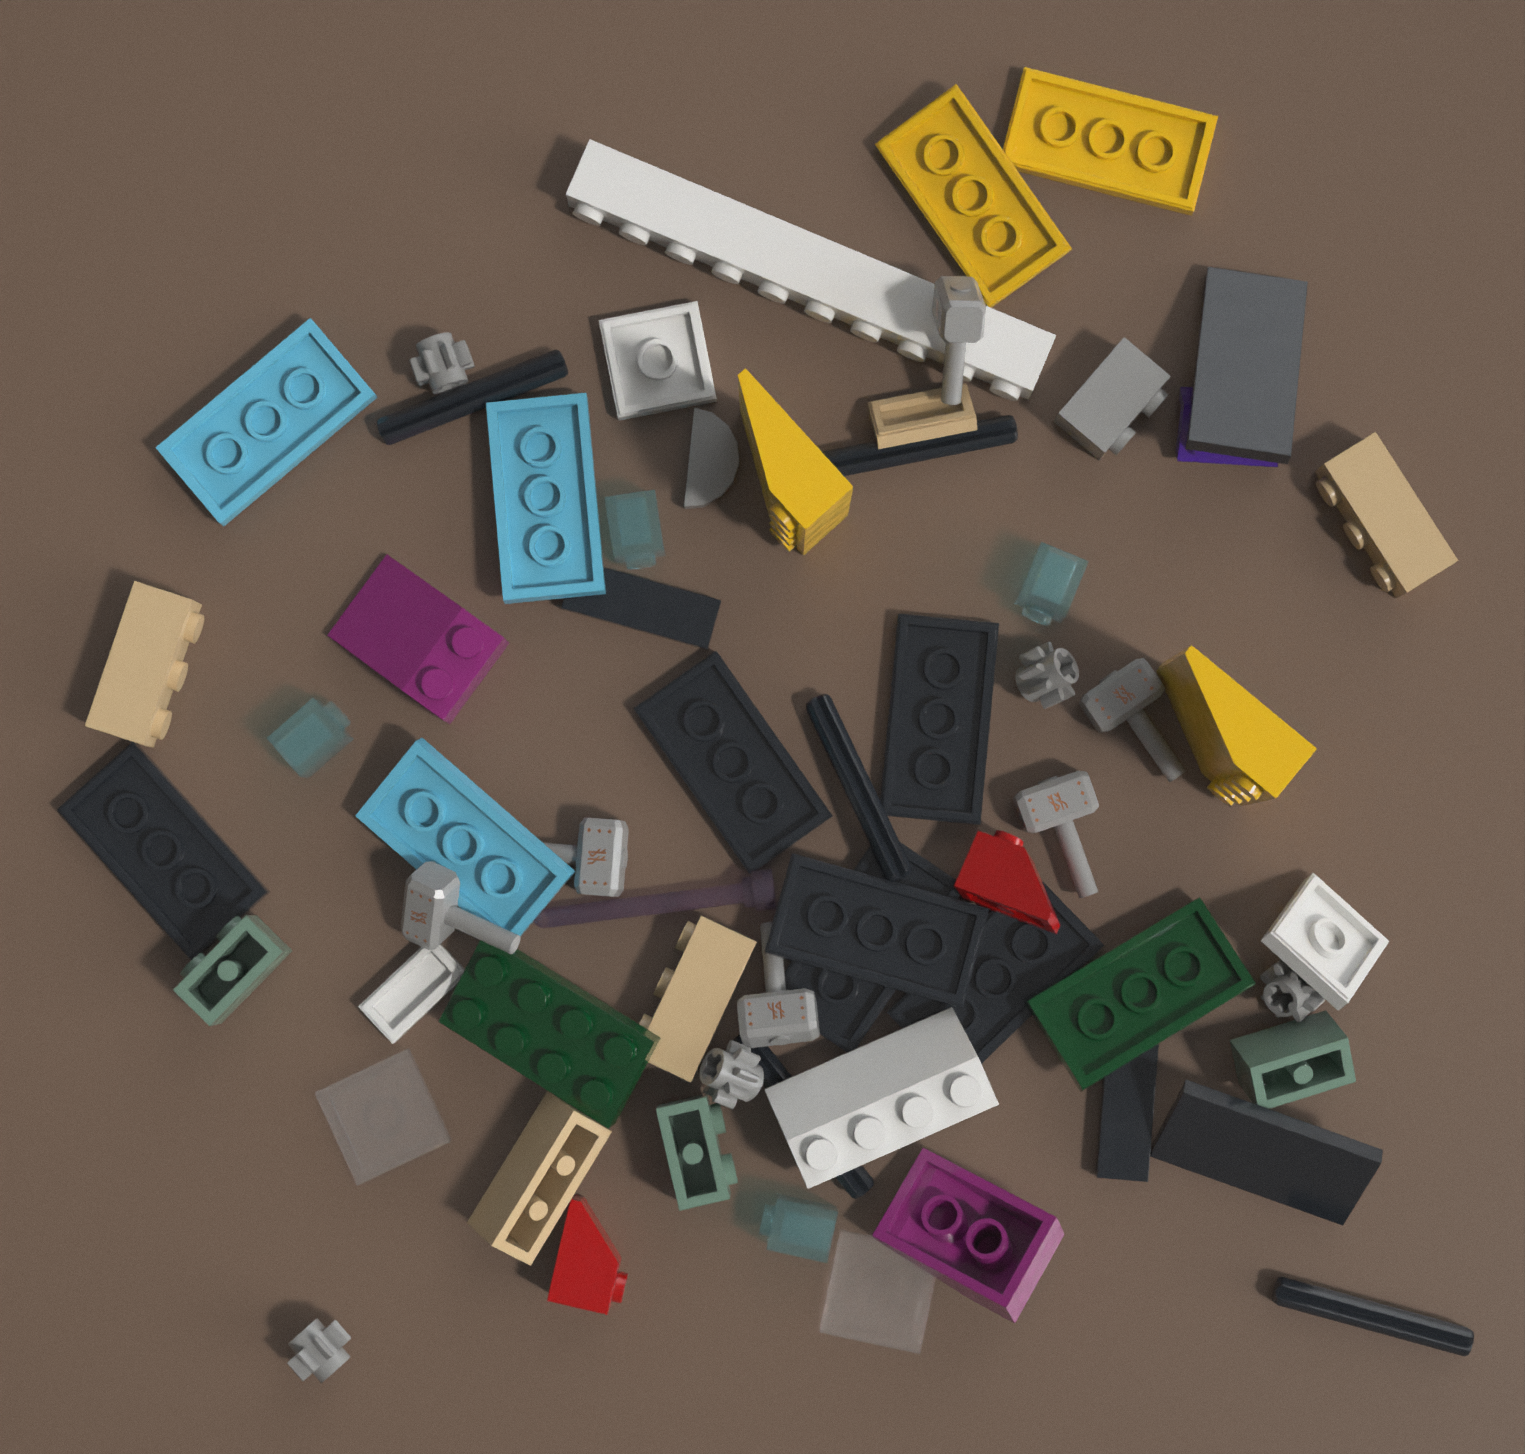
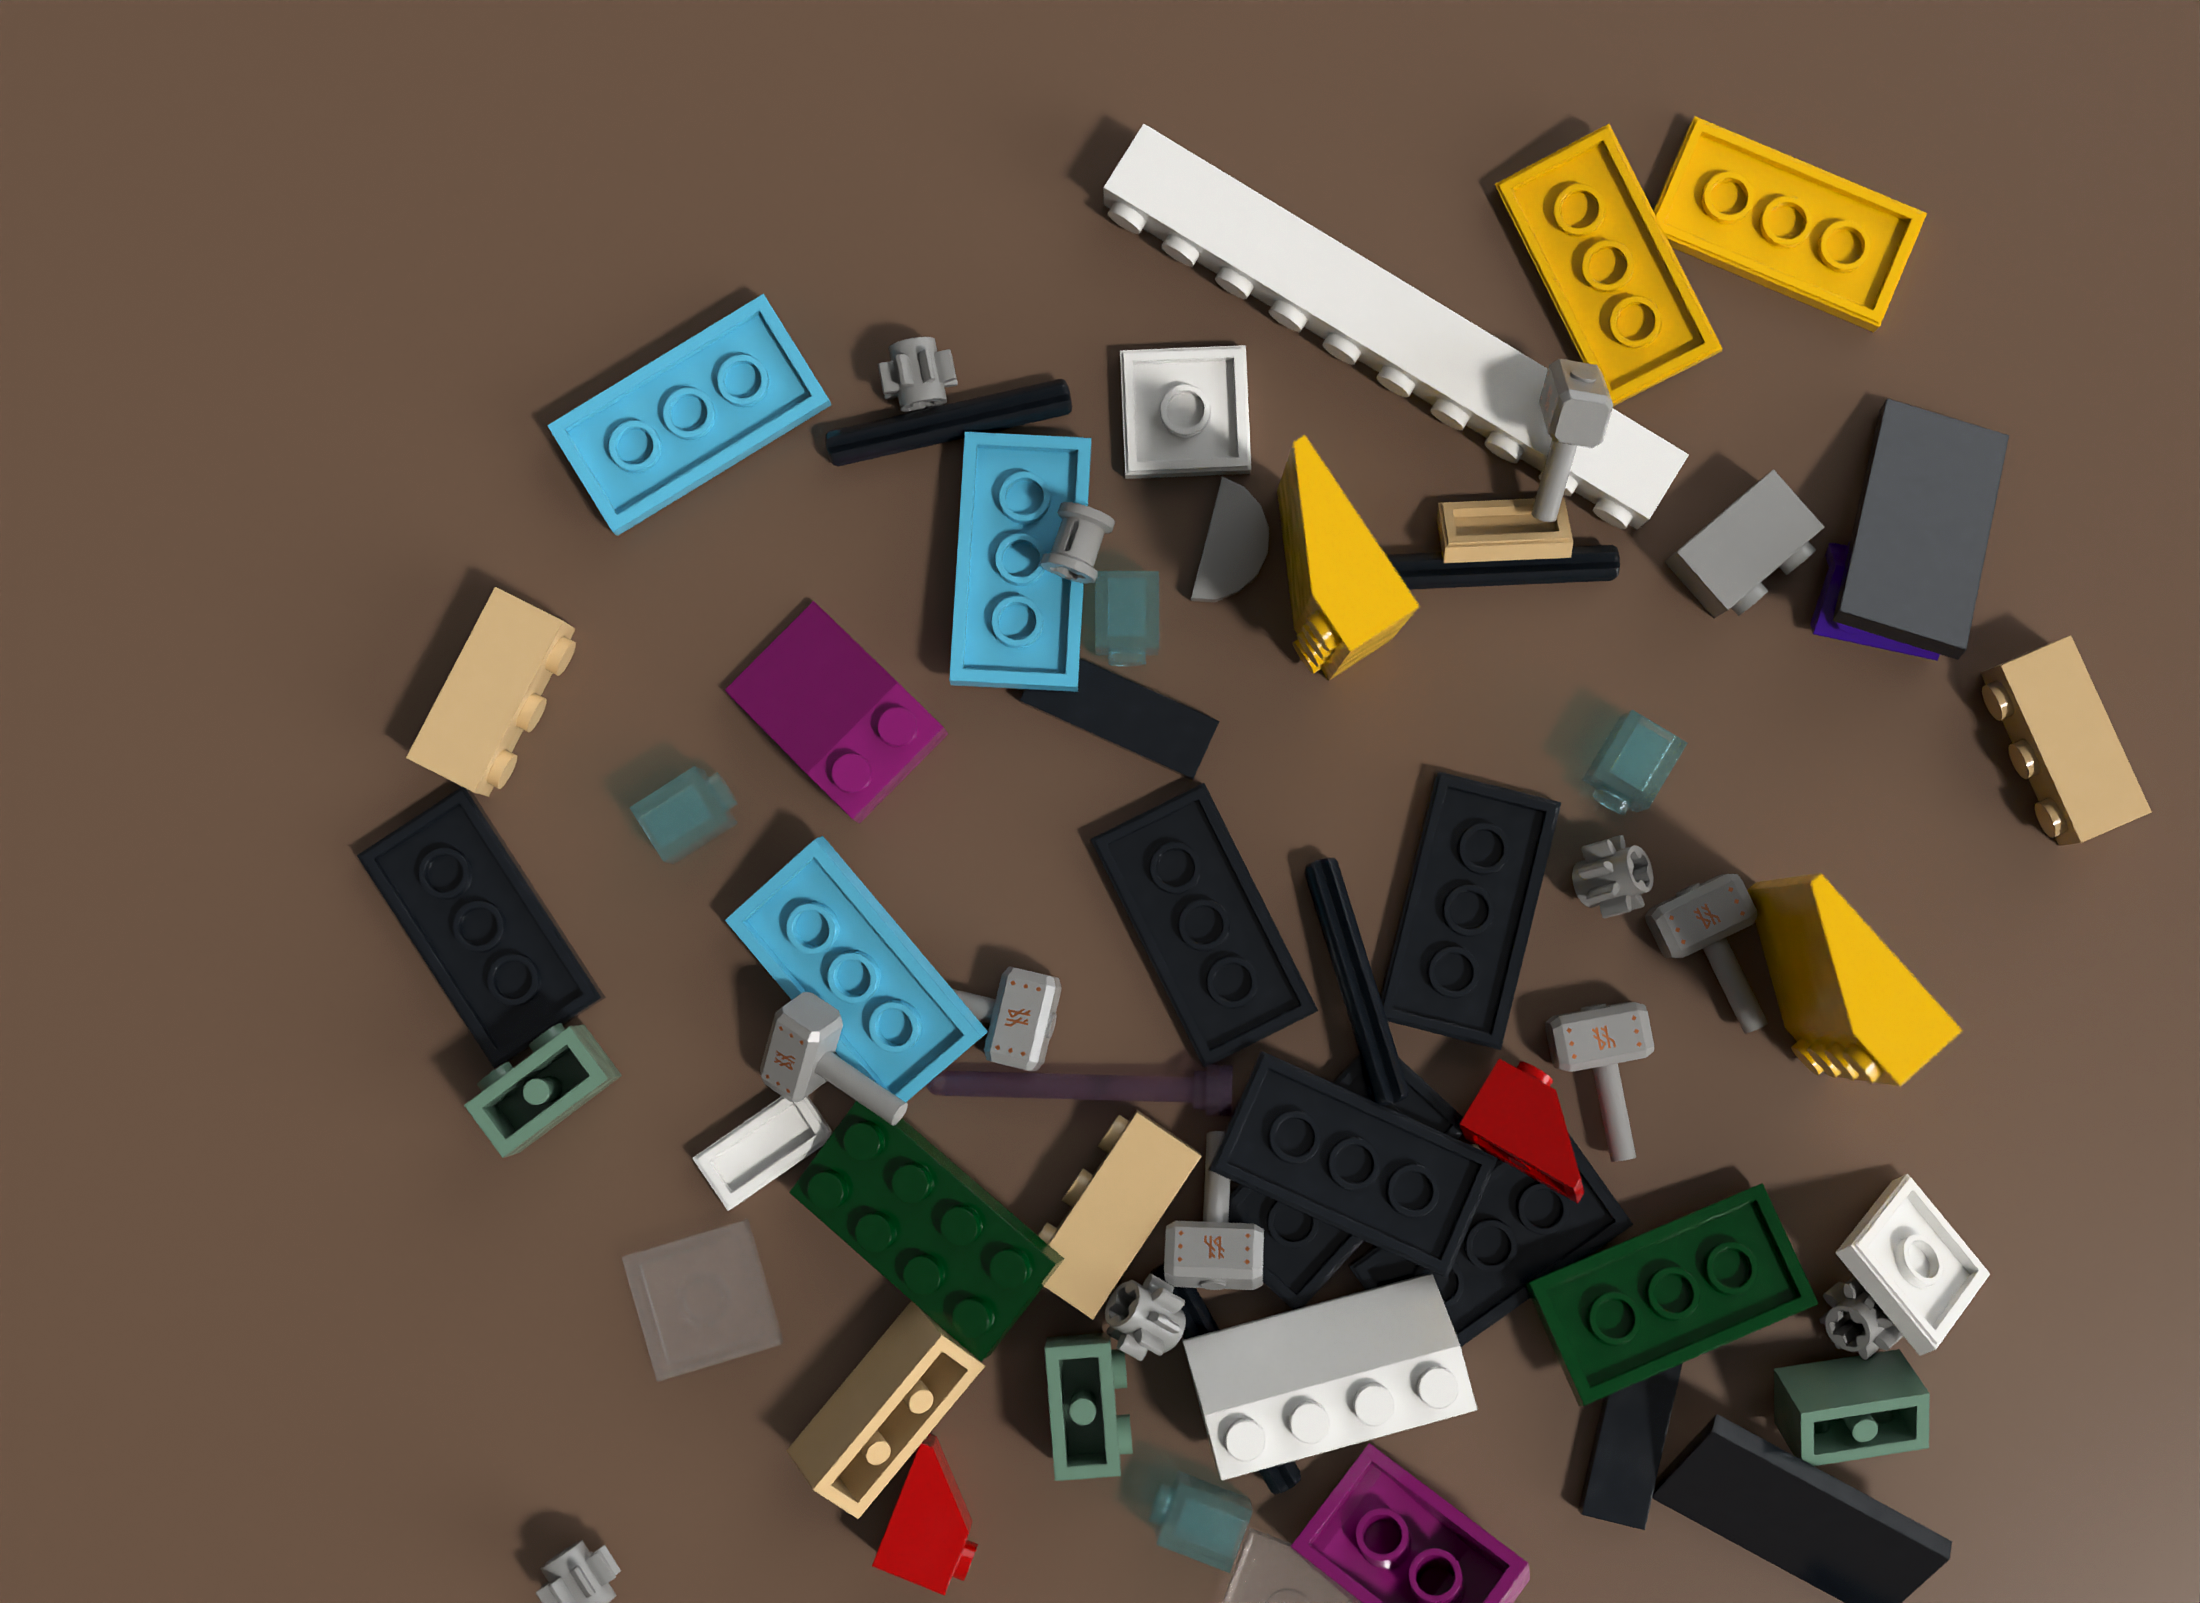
camera: 10 degrees right, 0 degrees up
(587, 477) = (1077, 542): none -> light grey bush

